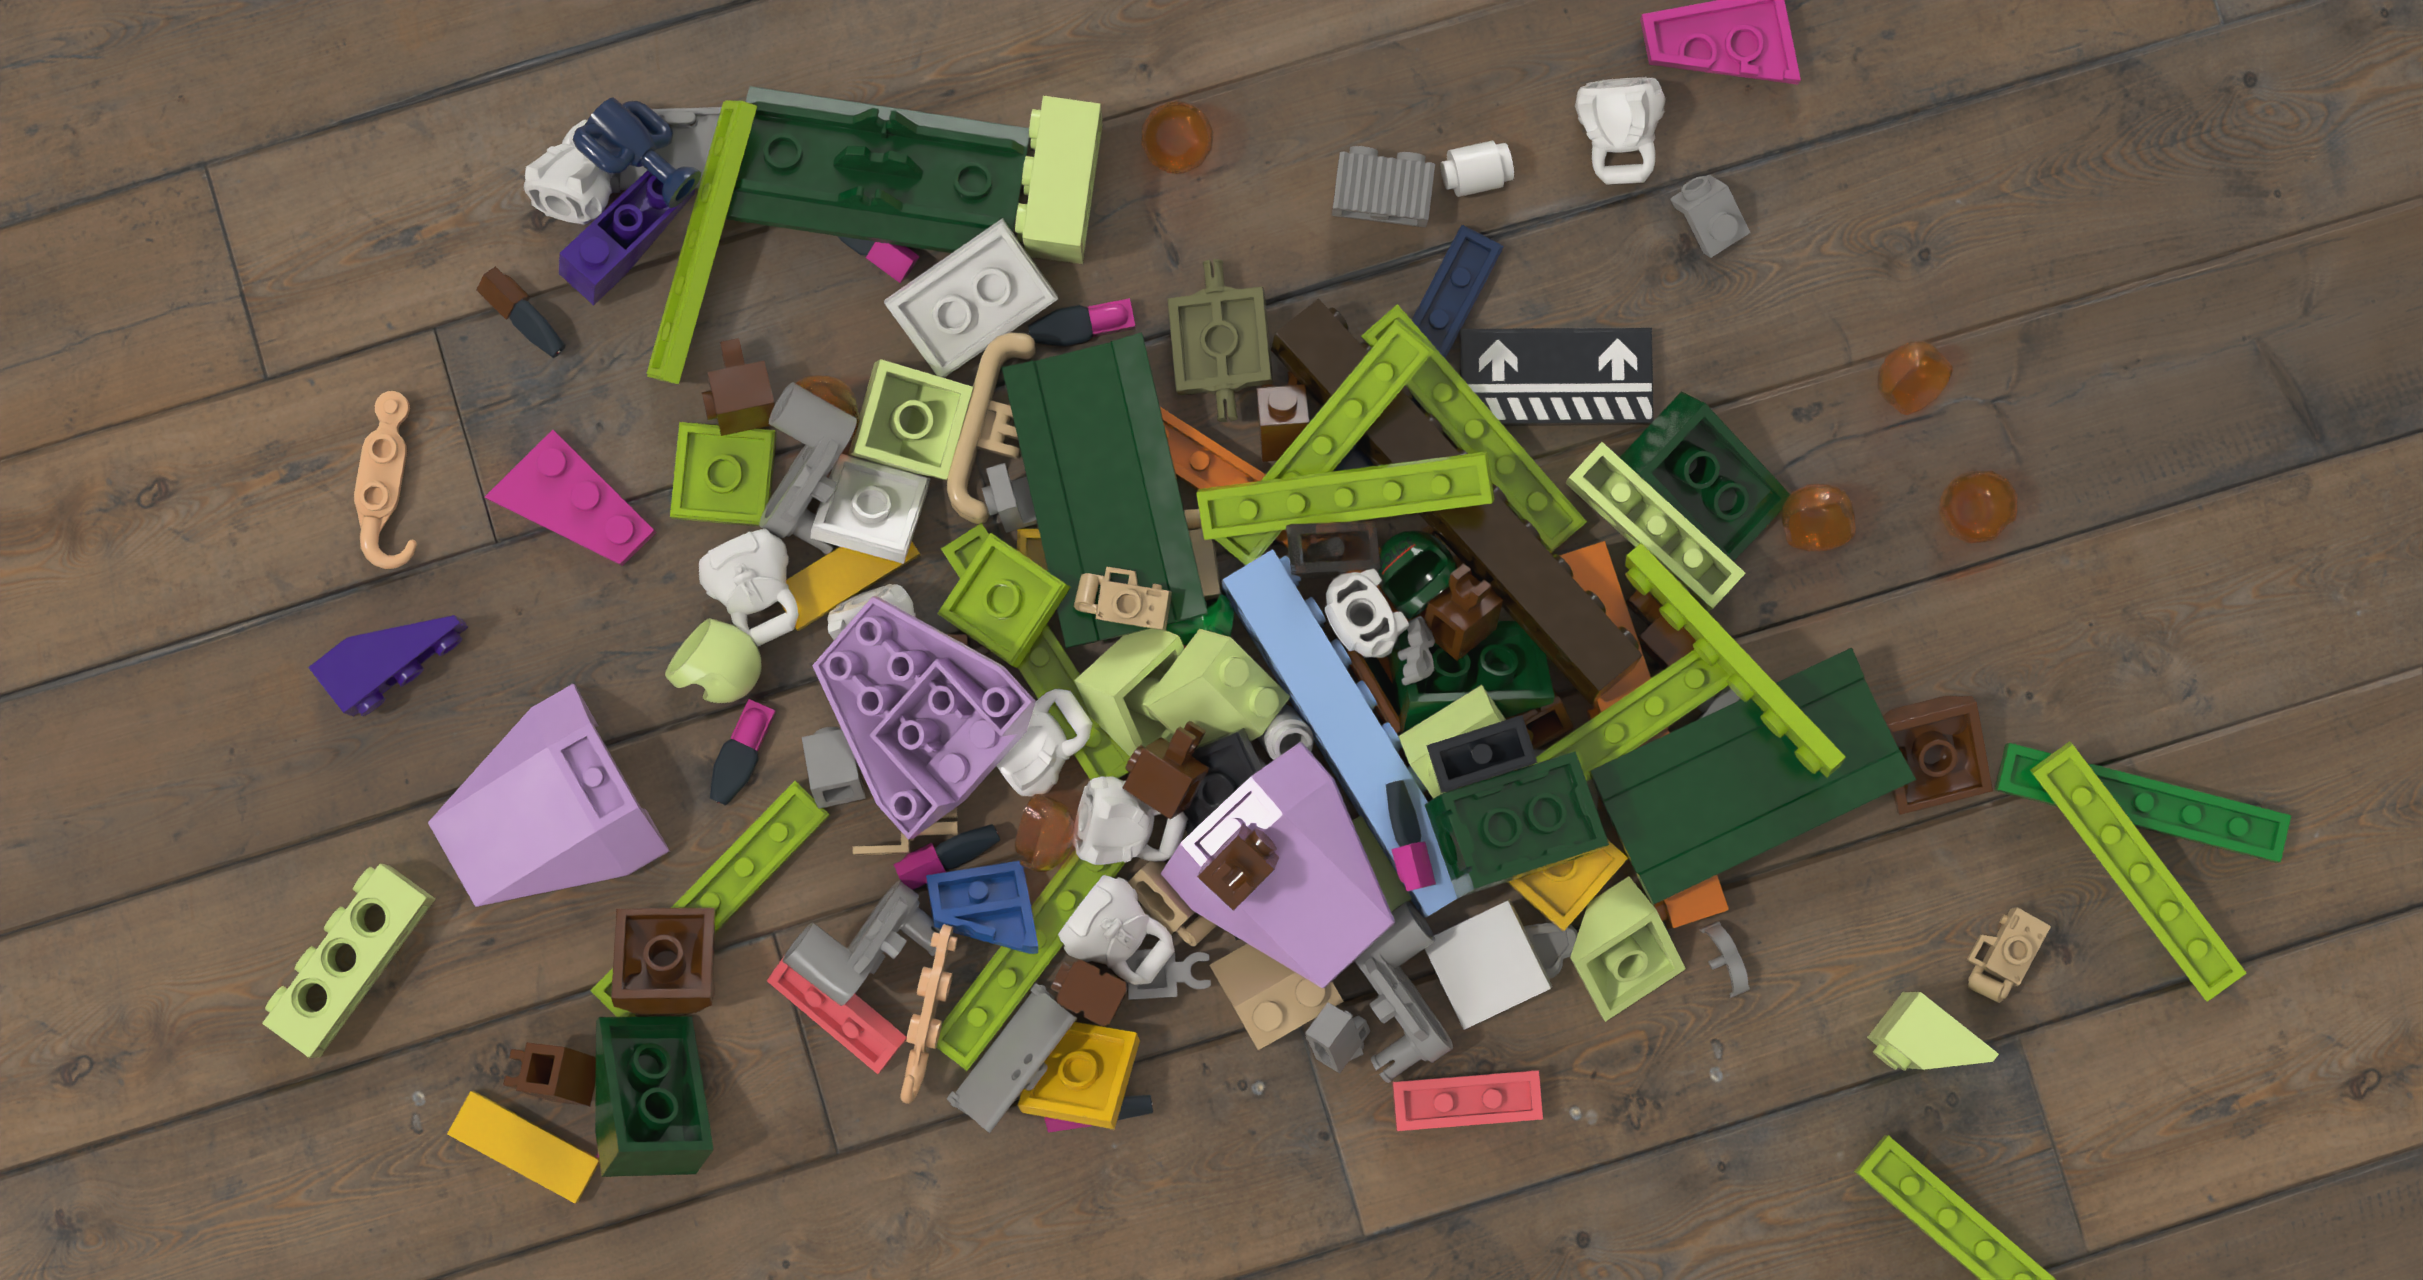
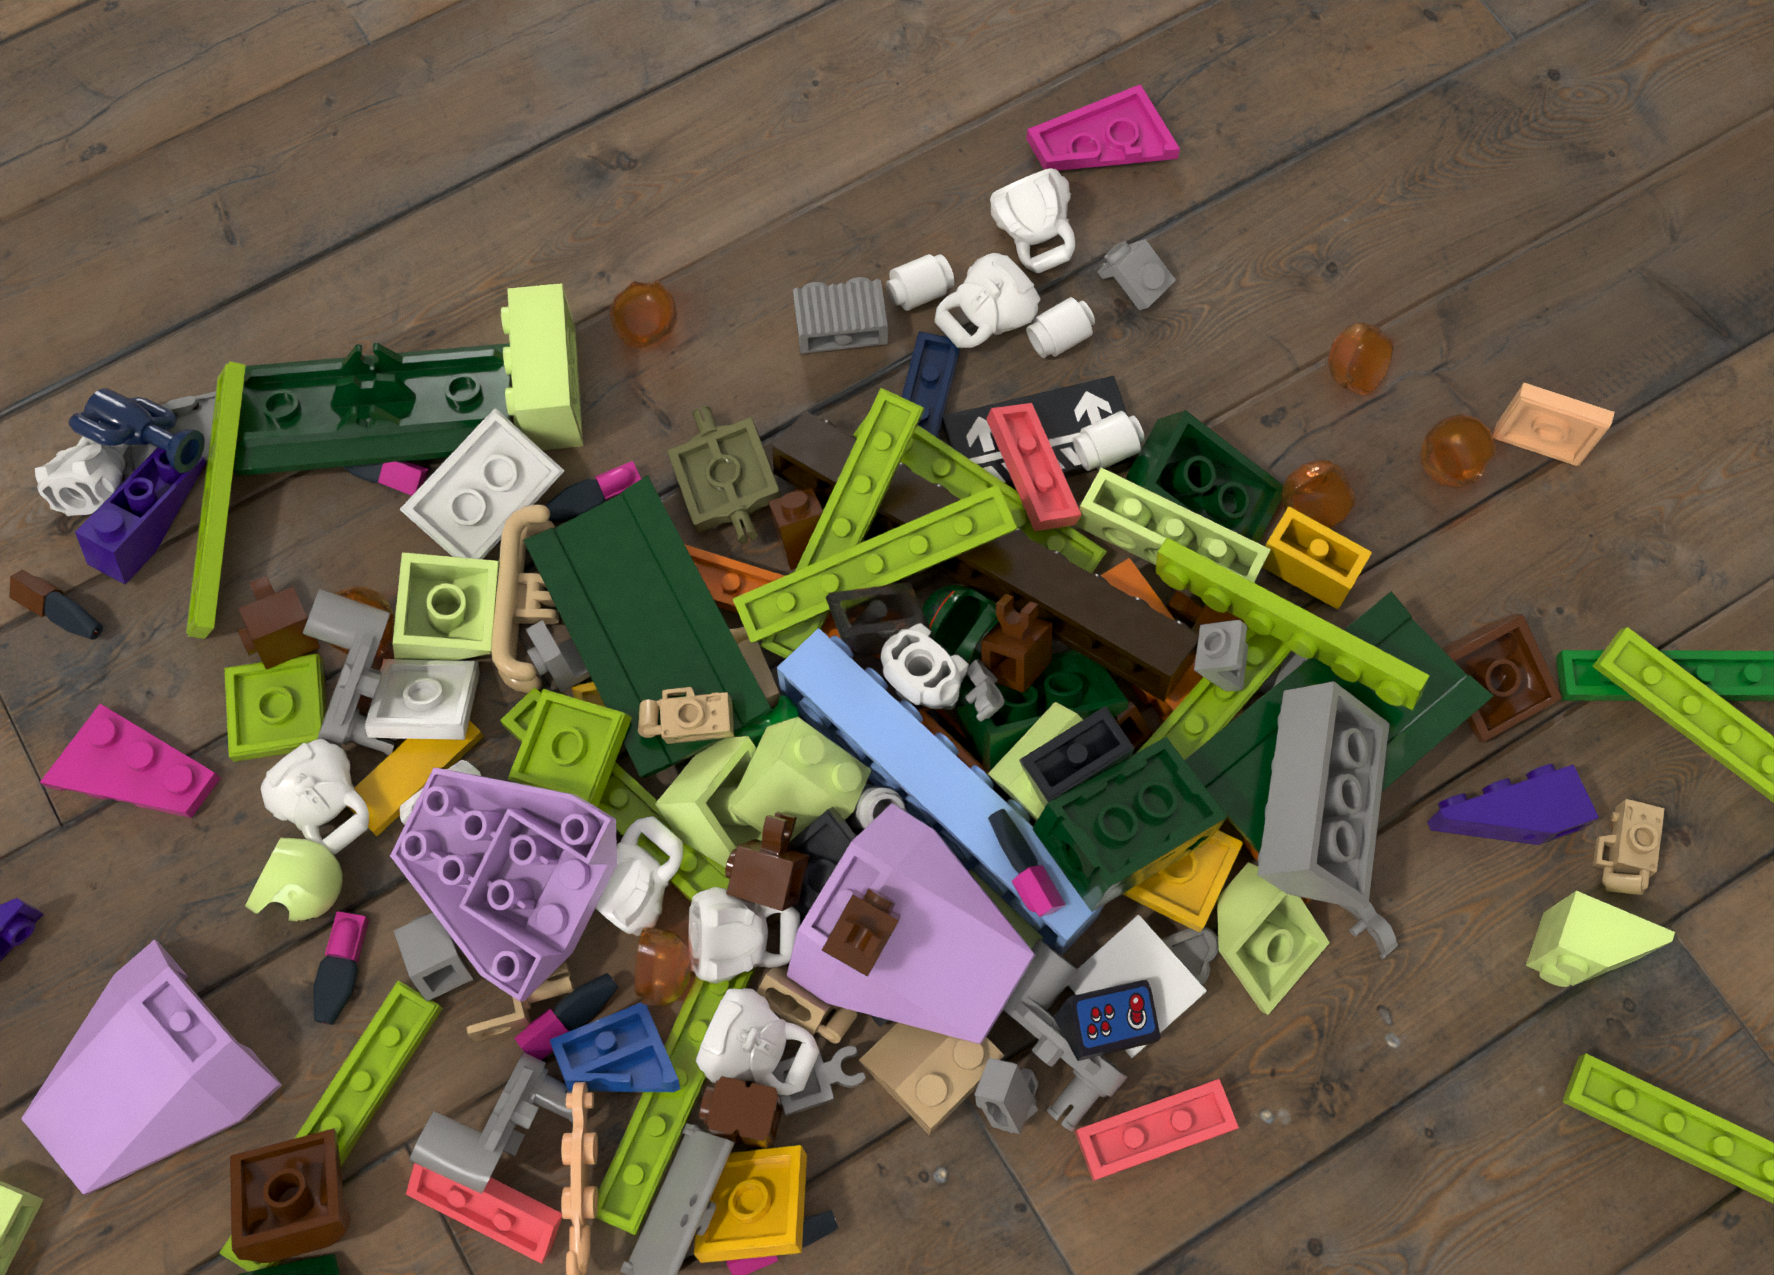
camera: 10 degrees left, 15 degrees down
(1449, 996) = (1109, 1020): none -> slope
(1535, 417) = (1033, 467): none -> coral plate
(1547, 211) = (992, 297): none -> white piece
(1612, 259) = (1061, 327): none -> white brick
(1621, 407) = (1108, 441): none -> white brick
(1658, 677) = (1223, 654): none -> light grey bracket
(1712, 841) = (1324, 796): none -> light grey slope
(1791, 586) = (1314, 558): none -> yellow brick
(1920, 895) = (1527, 812): none -> dark purple slope
(2082, 506) = (1552, 424): none -> light nougat tile

